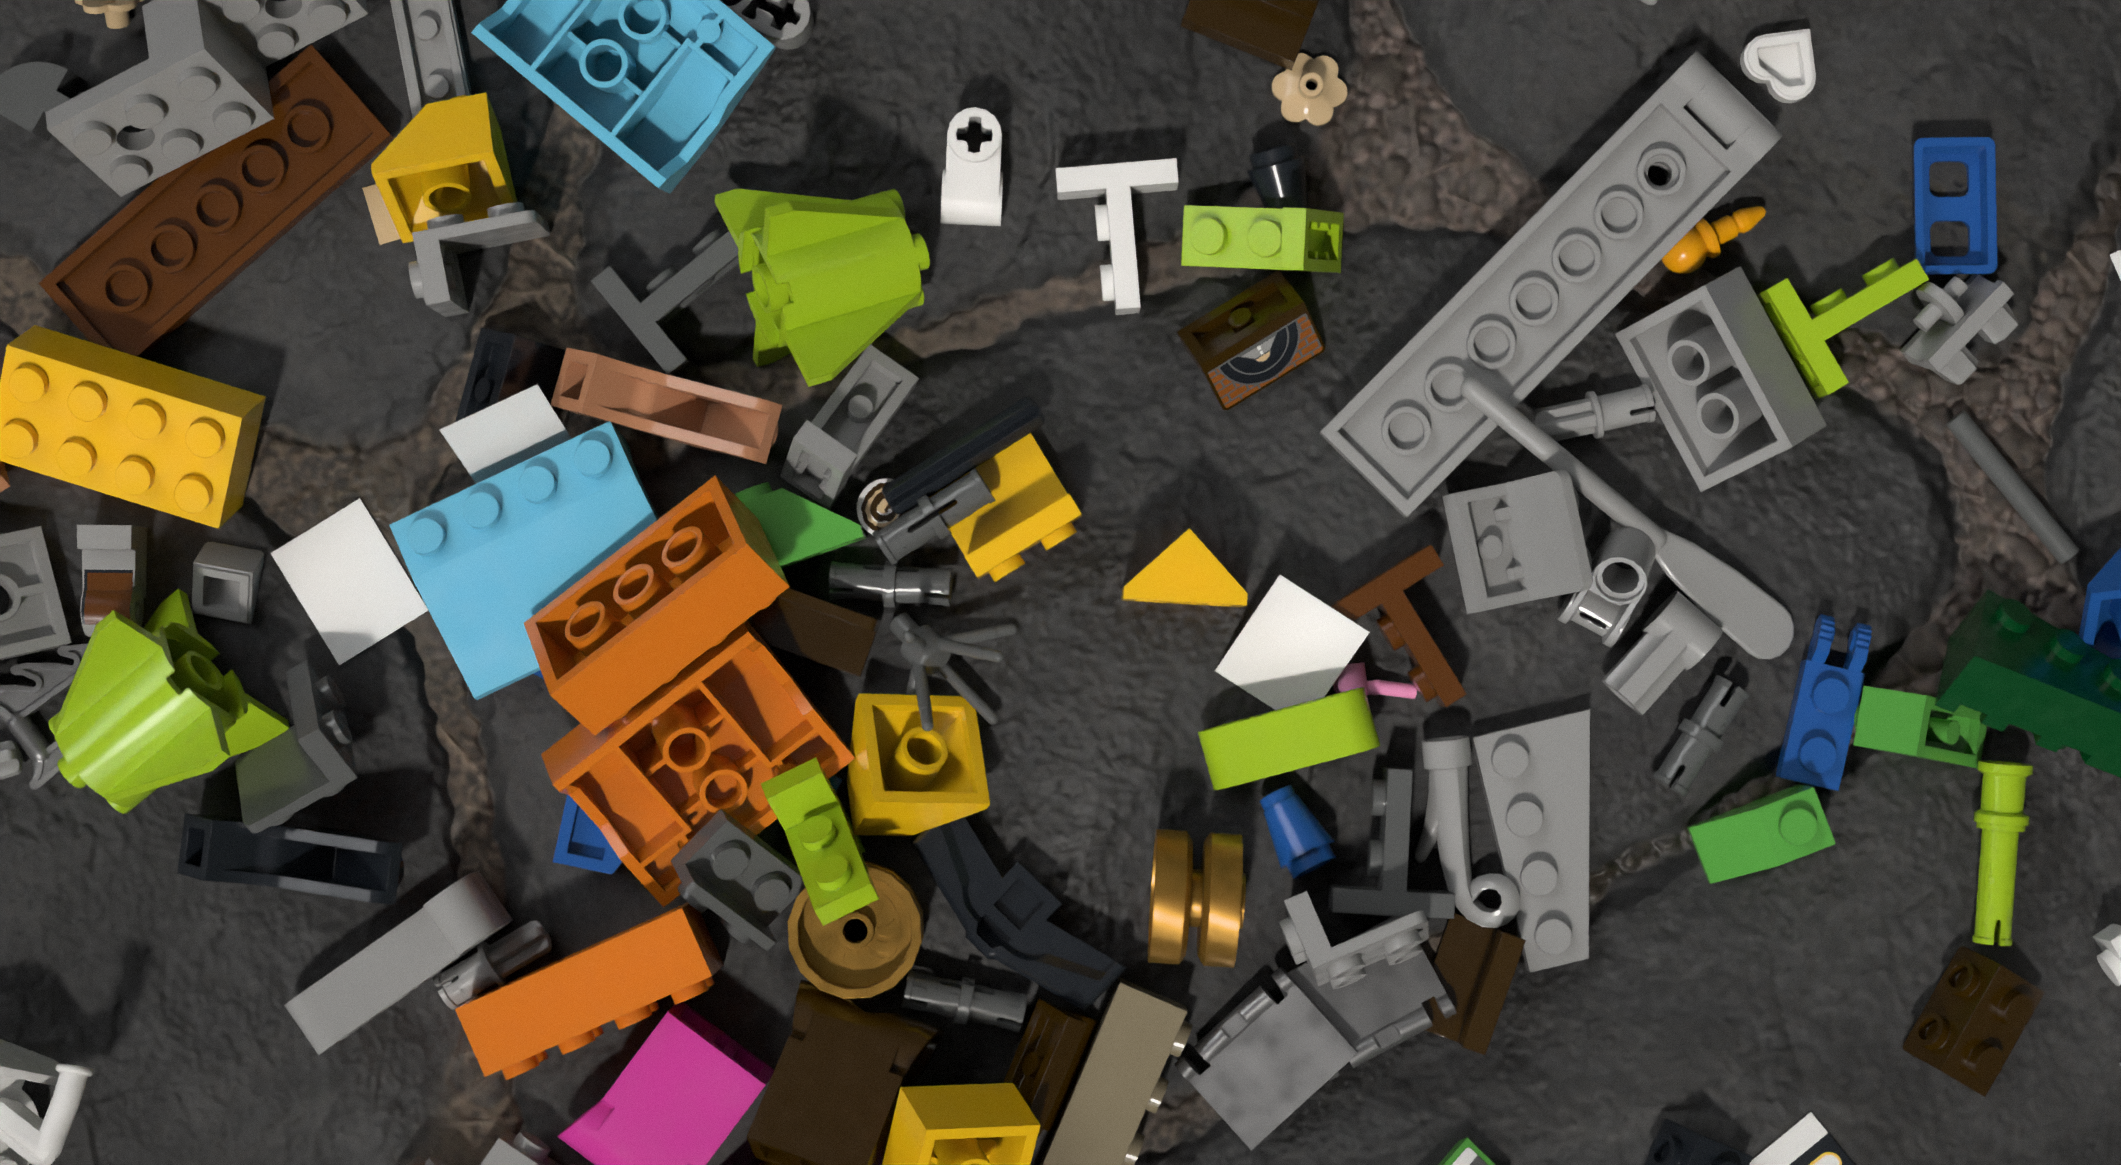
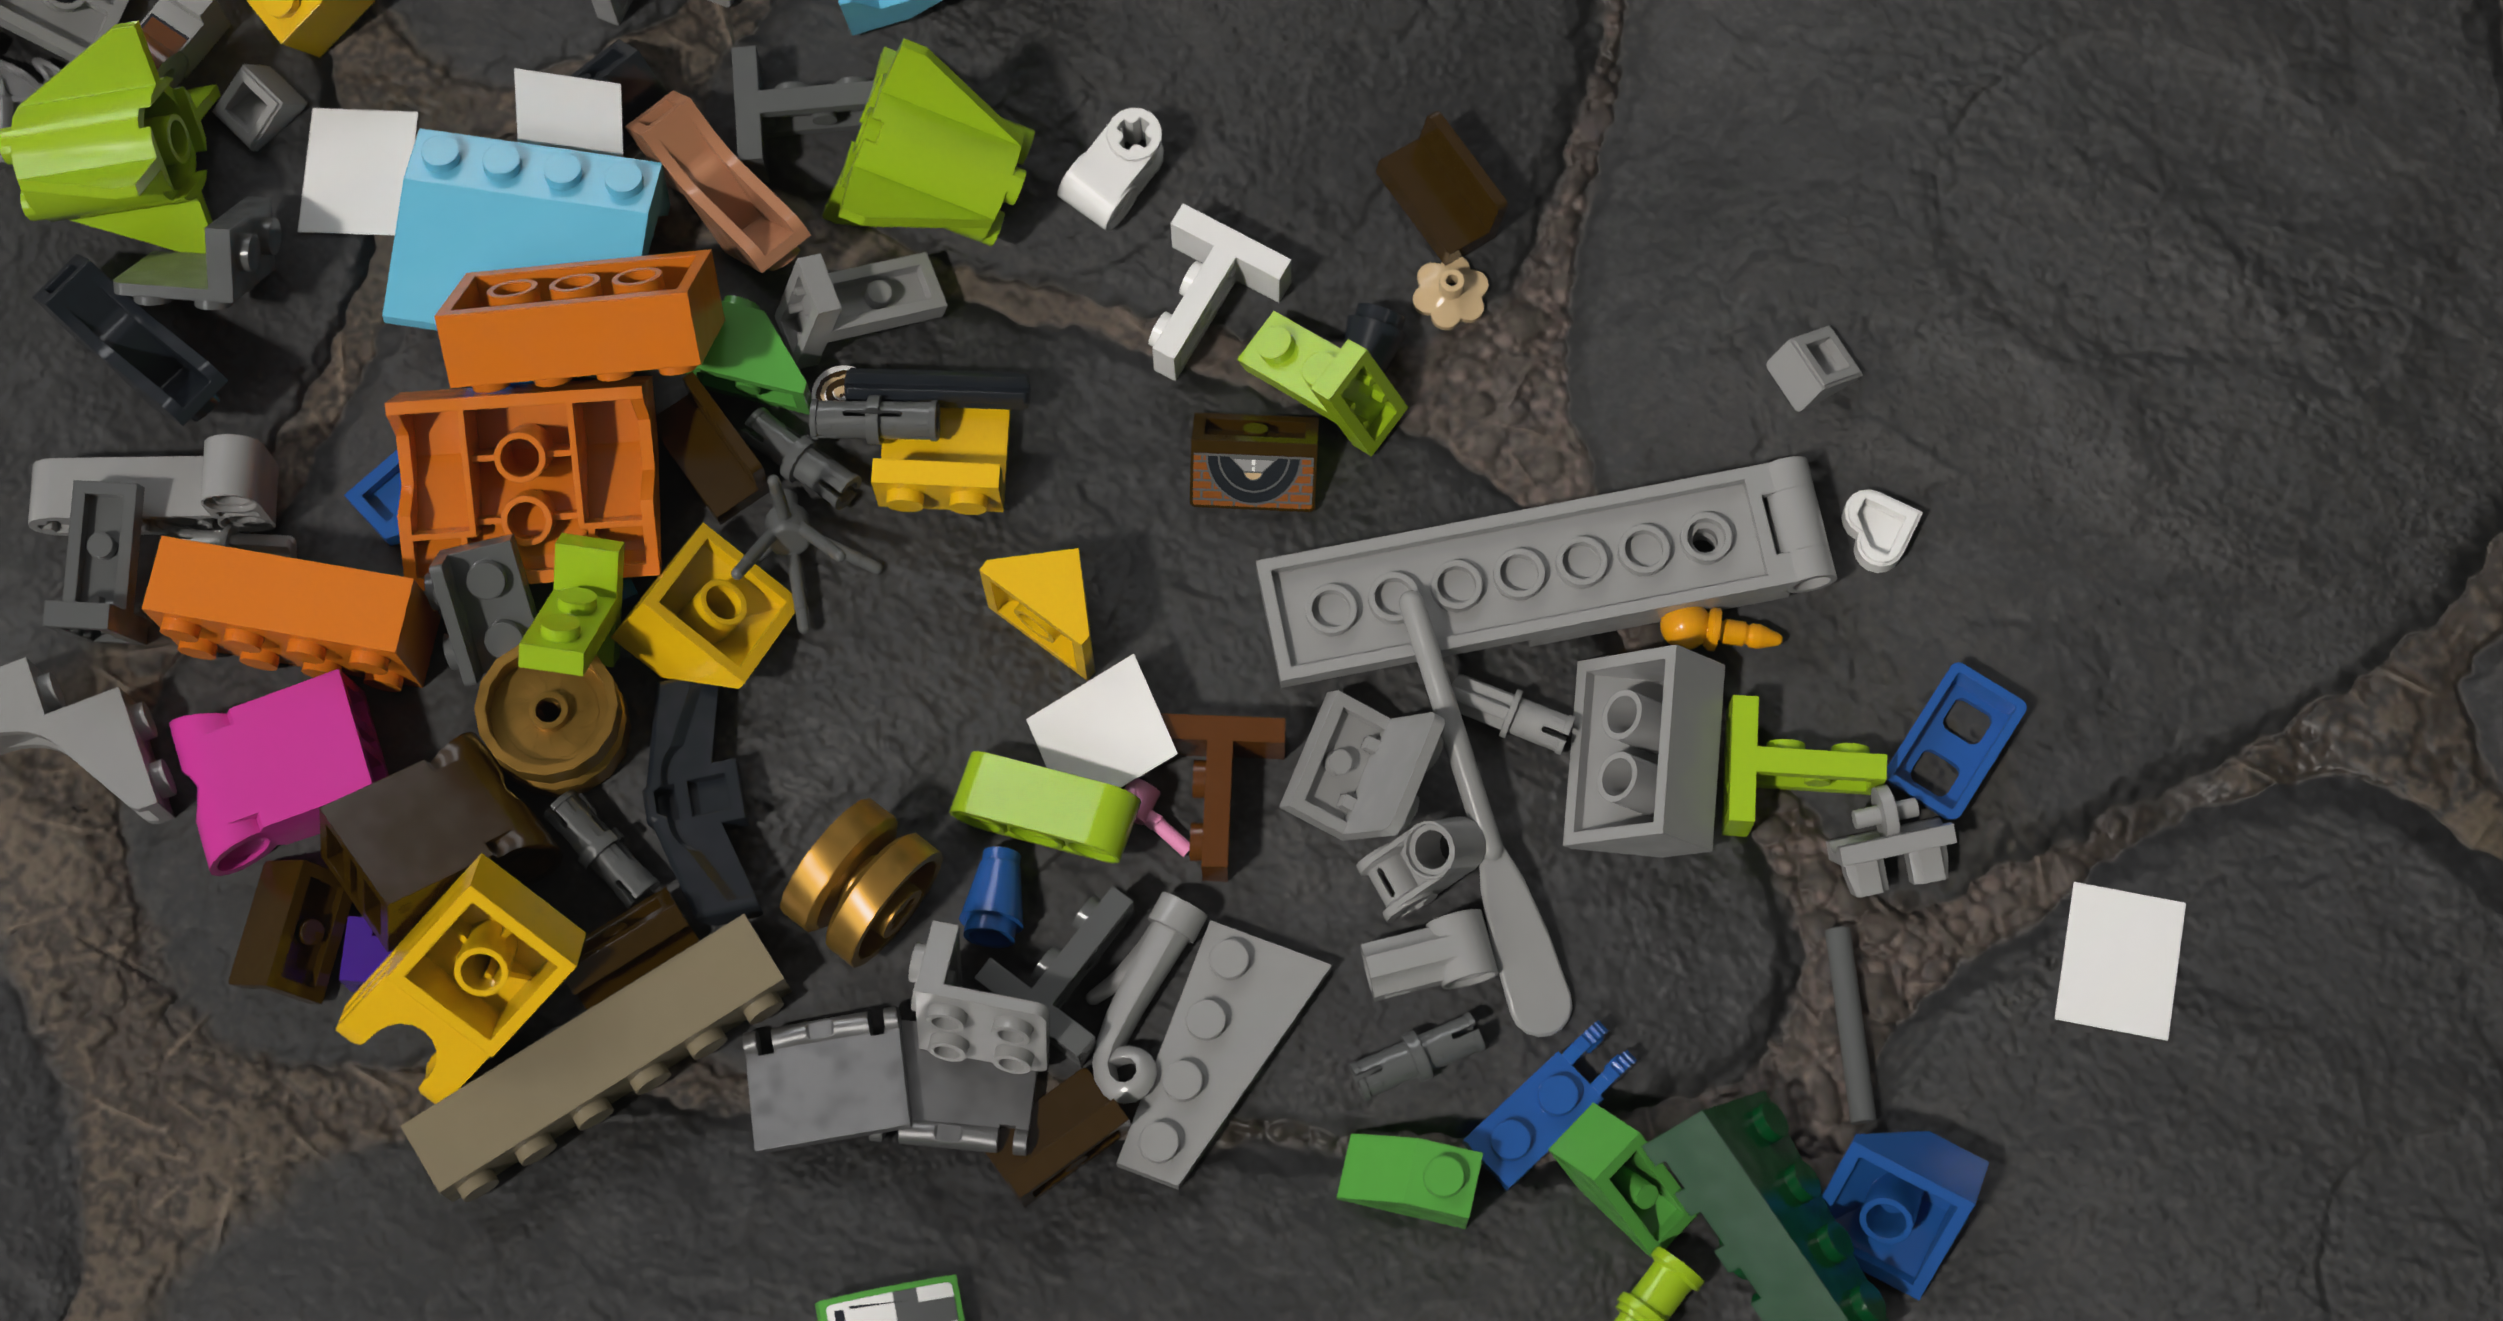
camera: 35 degrees right, 15 degrees down
(412, 1055) = (101, 566): none -> dark grey bracket

